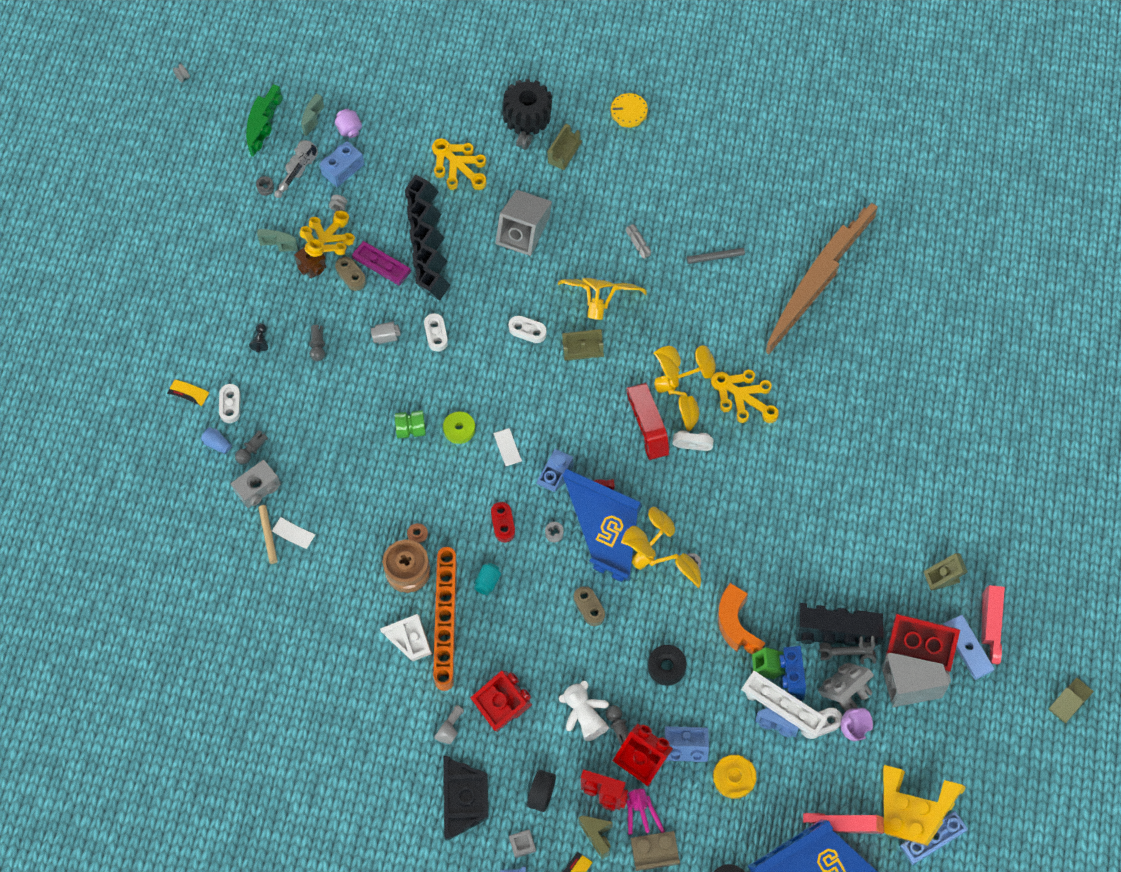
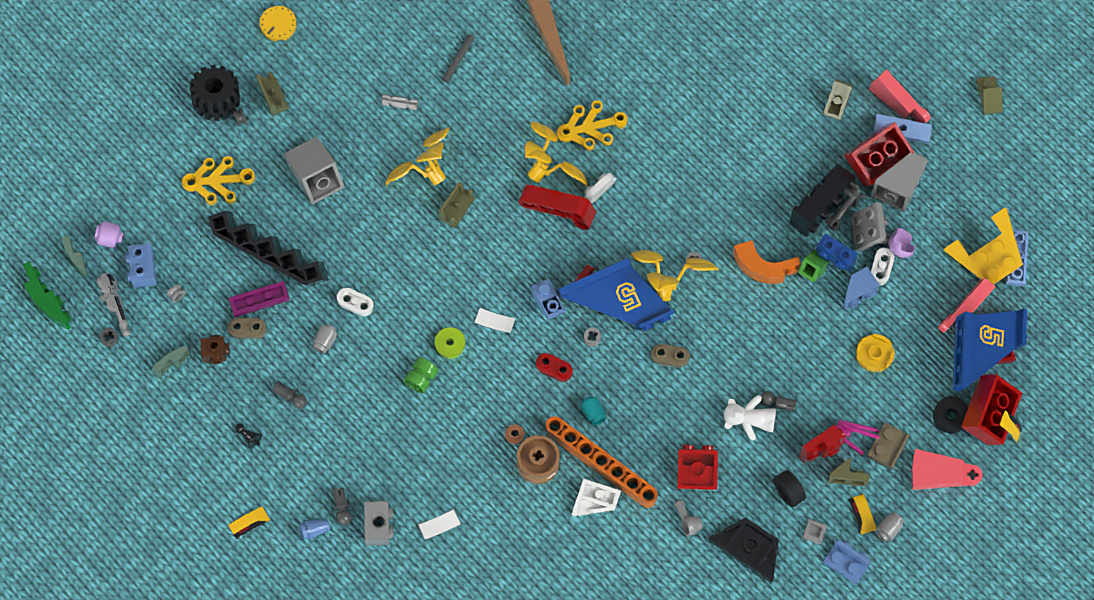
camera: 55 degrees left, 5 degrees up
(229, 405) = (289, 497): white plate -> none
(268, 534) = (425, 543): tan bar -> none
(316, 247) = (211, 335): yellow plant -> none
(528, 329) = (407, 233): white plate -> none
(643, 753) = (816, 399): red plate -> none
(670, 653) = (764, 326): black tyre -> none
(688, 743) = (828, 366): medium blue bracket -> none
(783, 704) = (853, 278): white piece -> none

